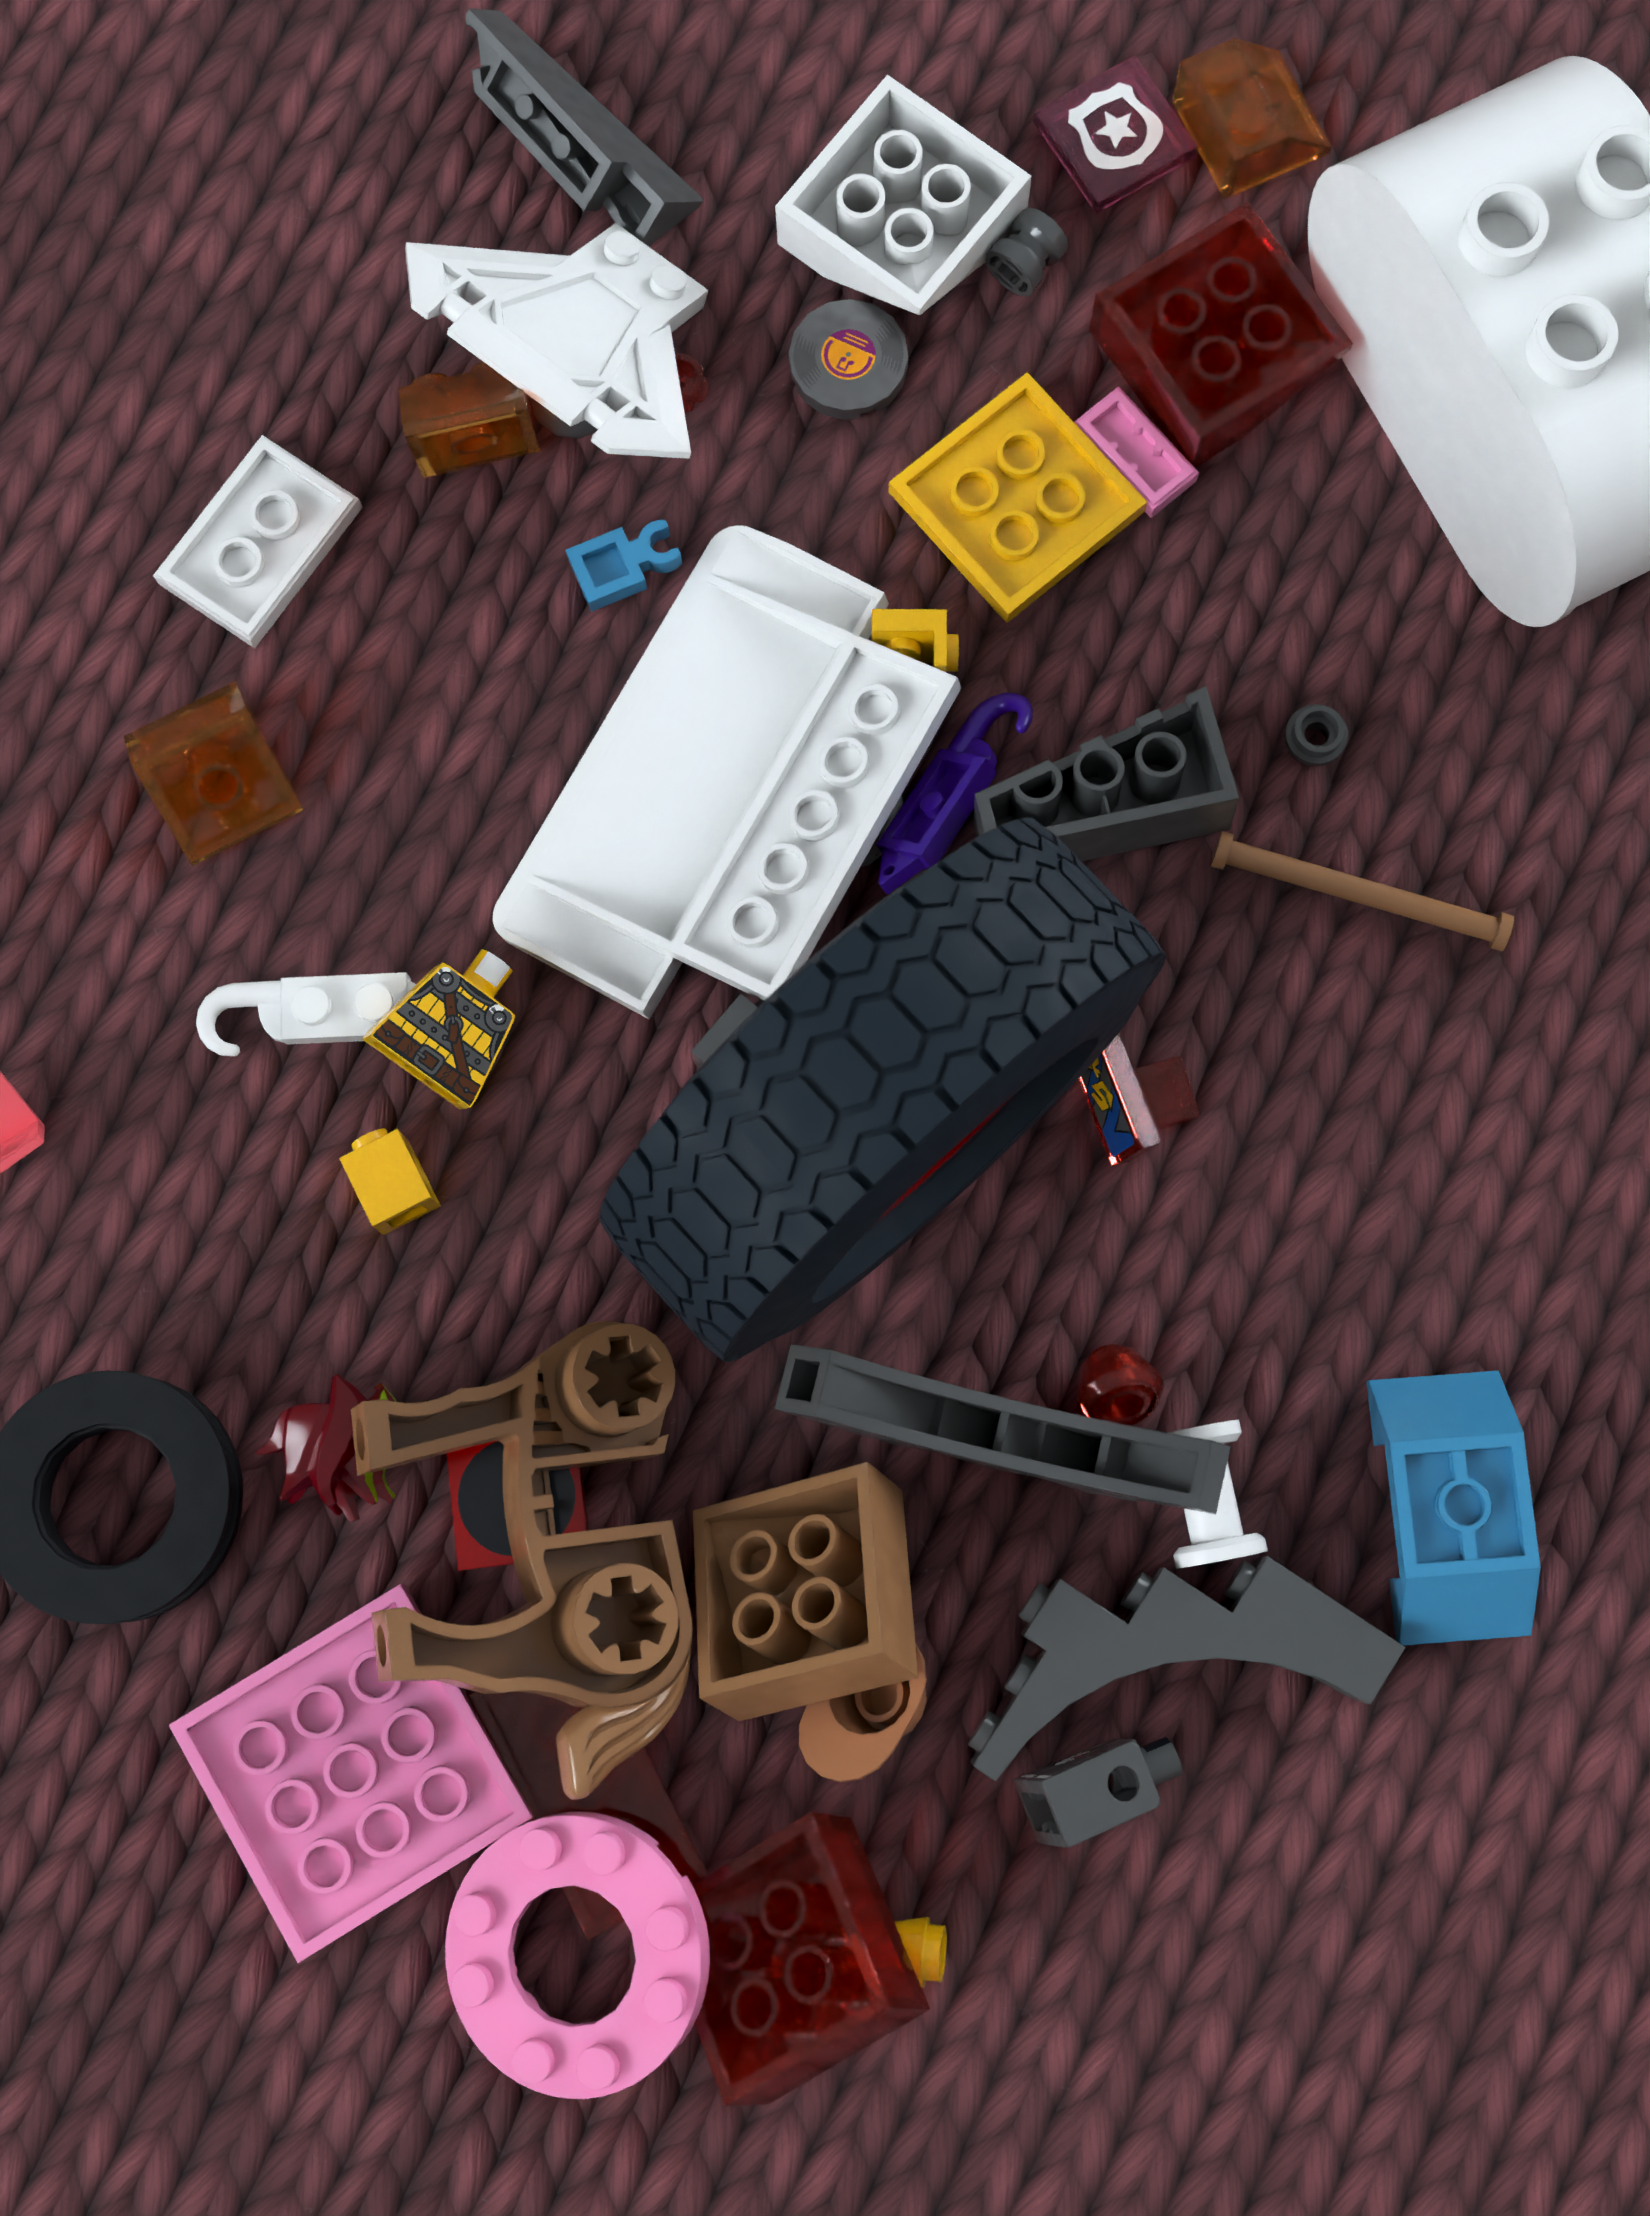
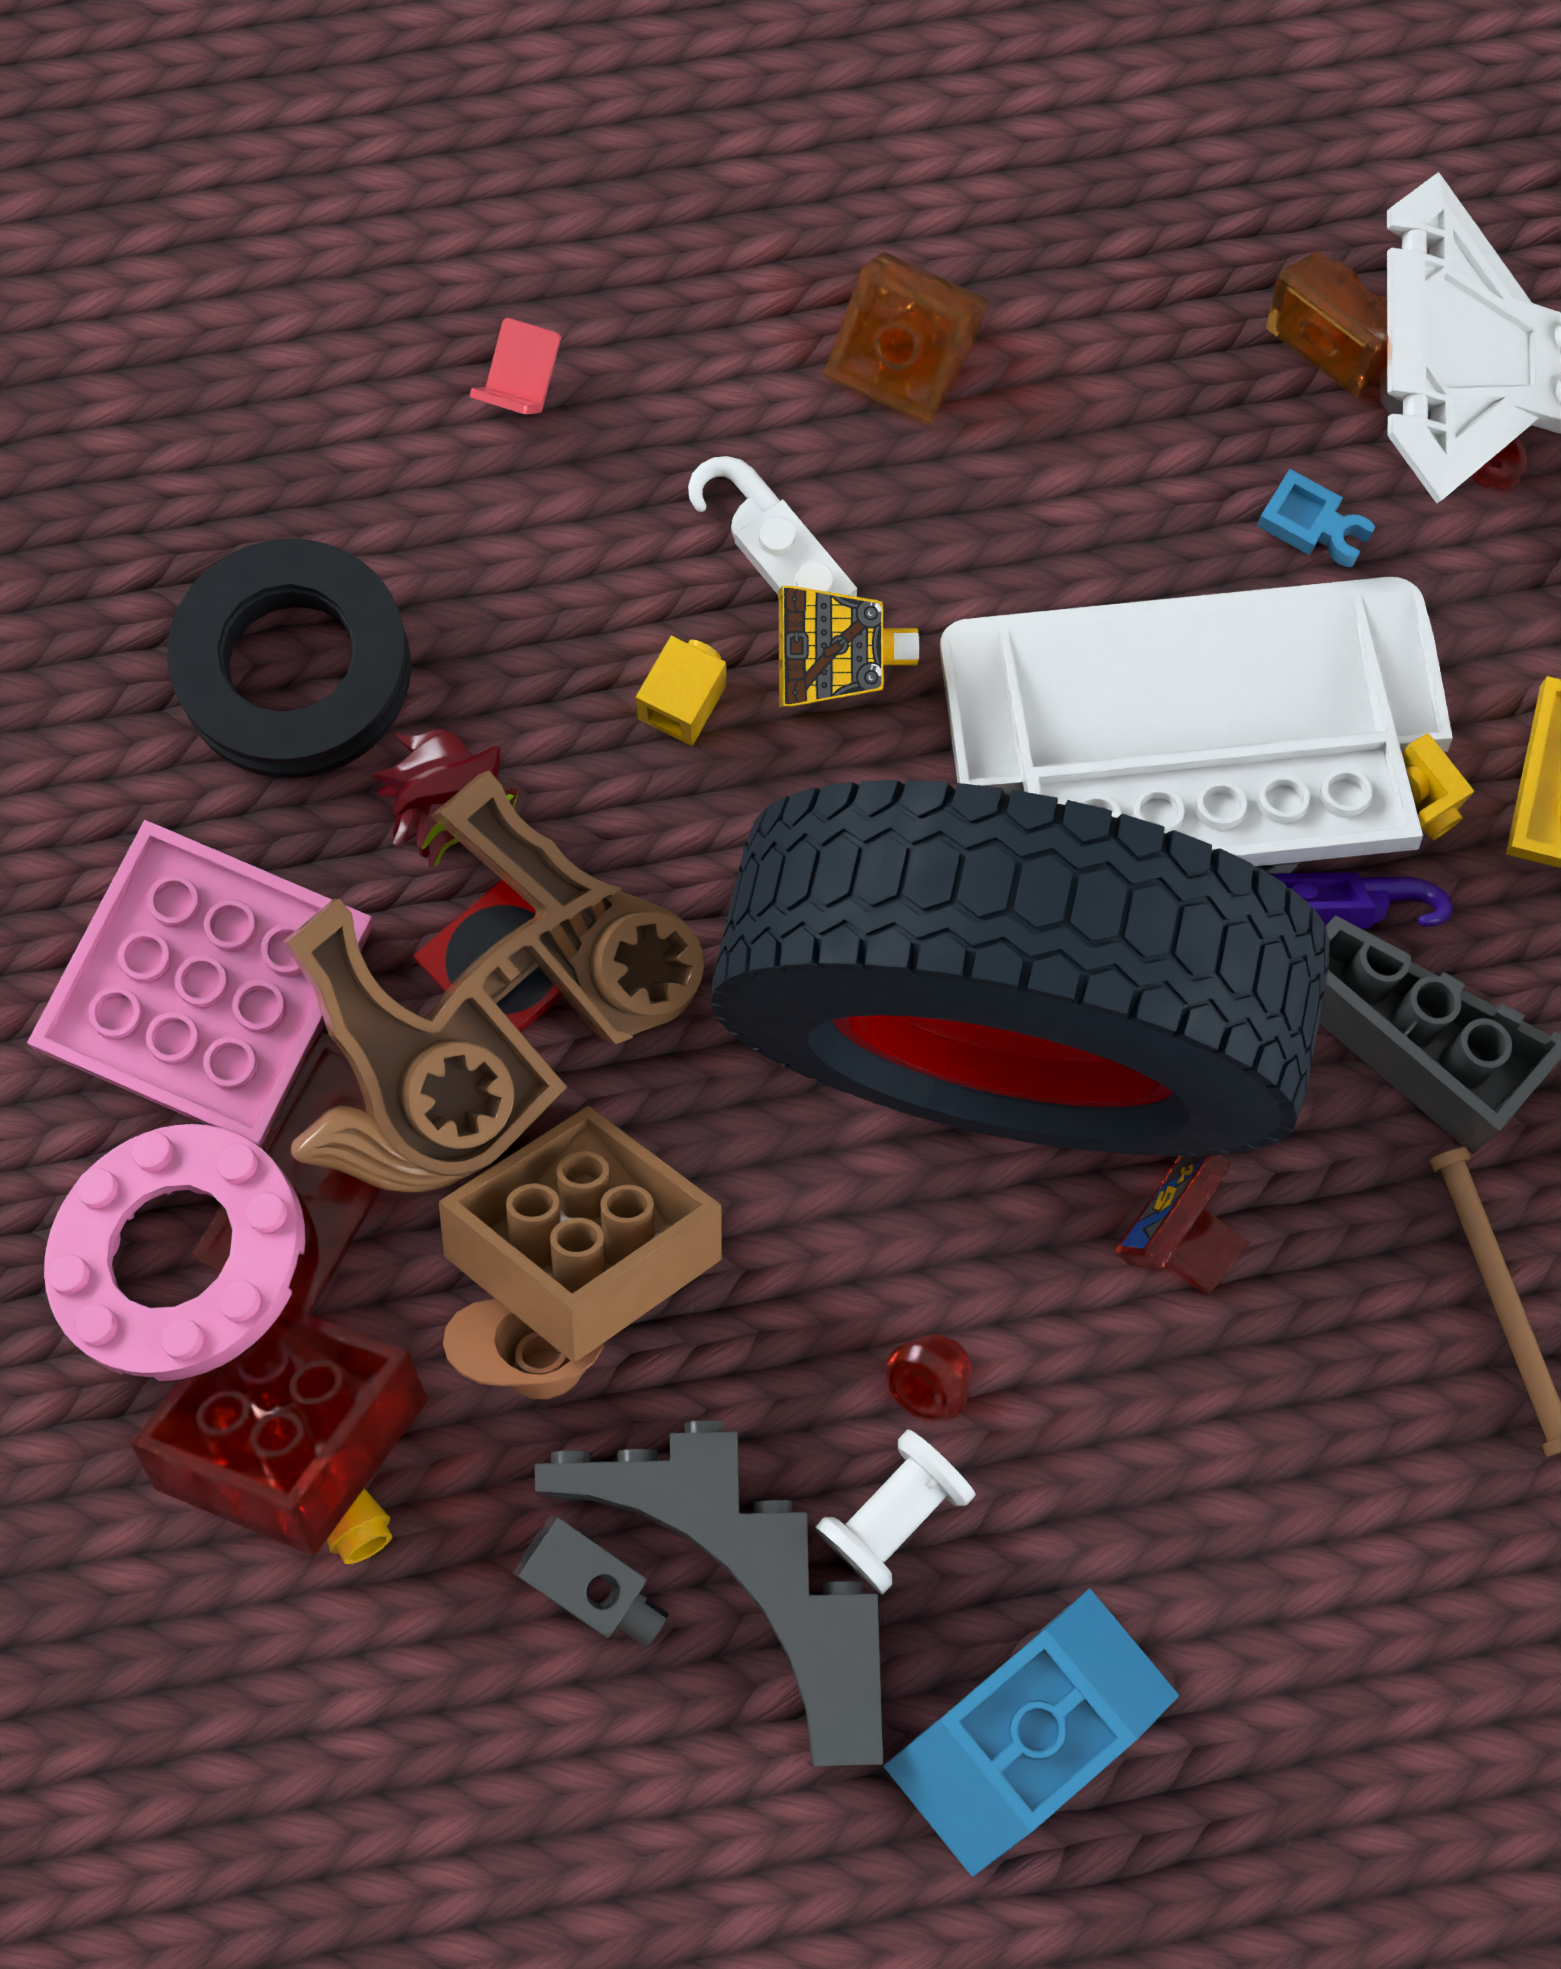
camera: 50 degrees right, 5 degrees down
(258, 541) = (1117, 243): white tile -> none
(1002, 1432) = (821, 1295): dark grey arch -> none

